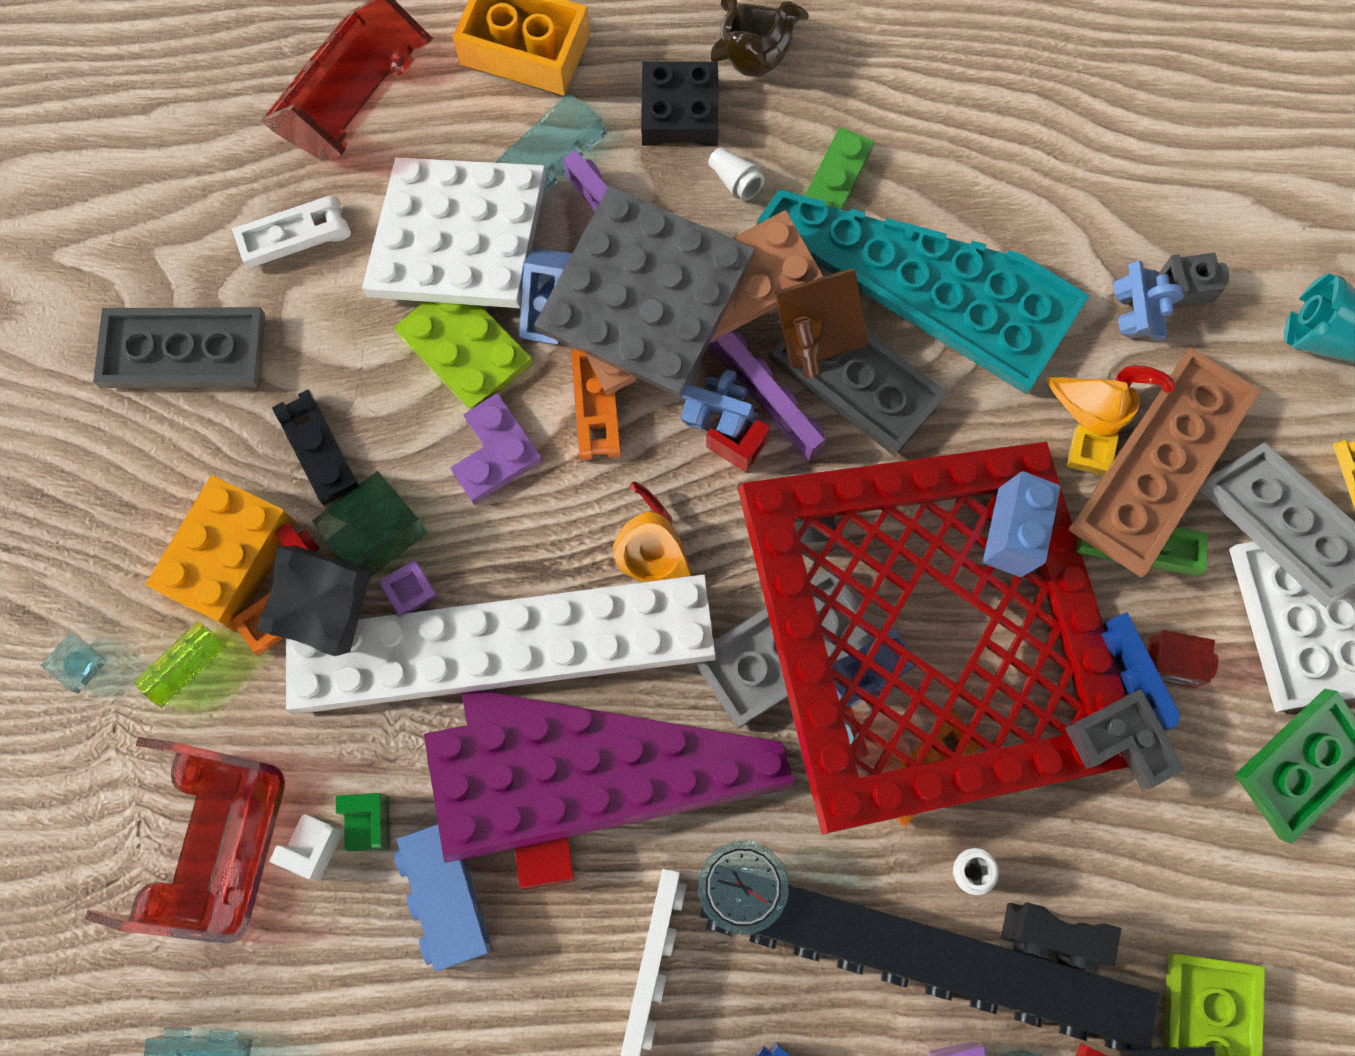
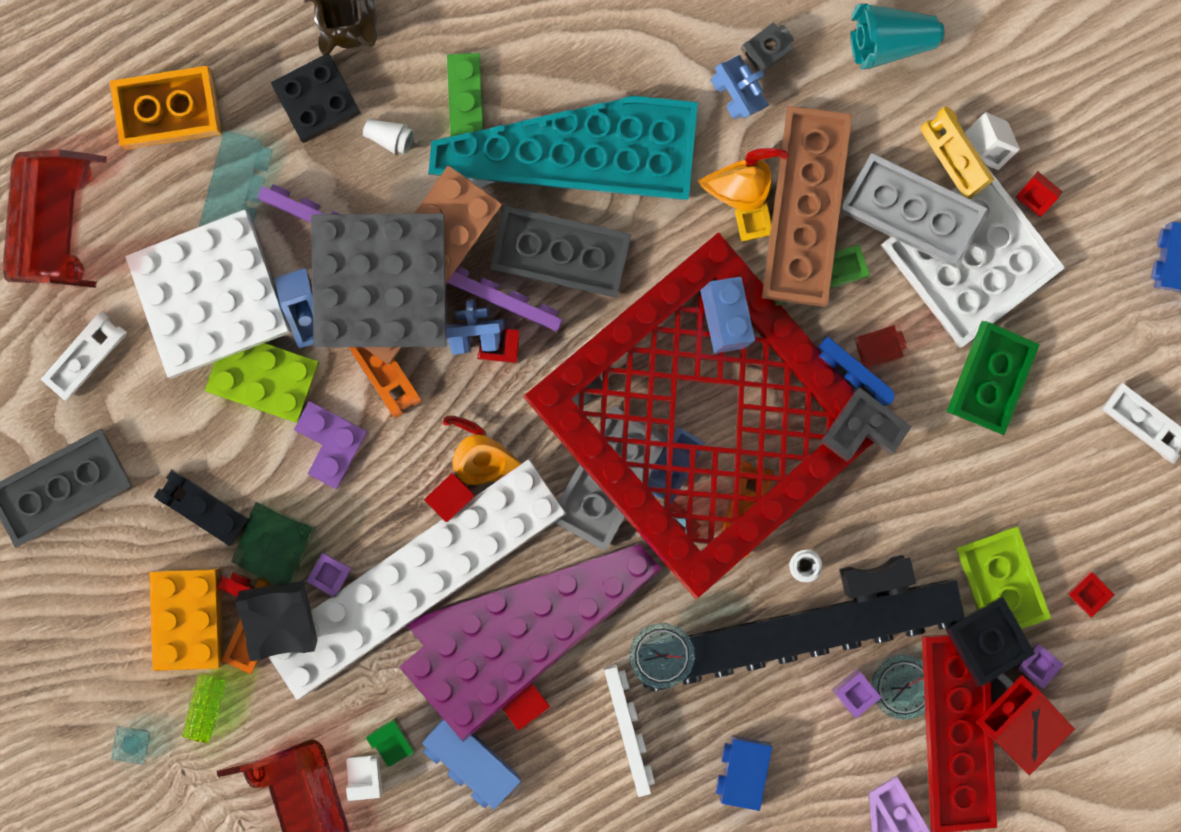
camera: 30 degrees left, 15 degrees up
(591, 569) = (449, 497): none -> red panel
(821, 320) = (515, 235): reddish brown plate -> none

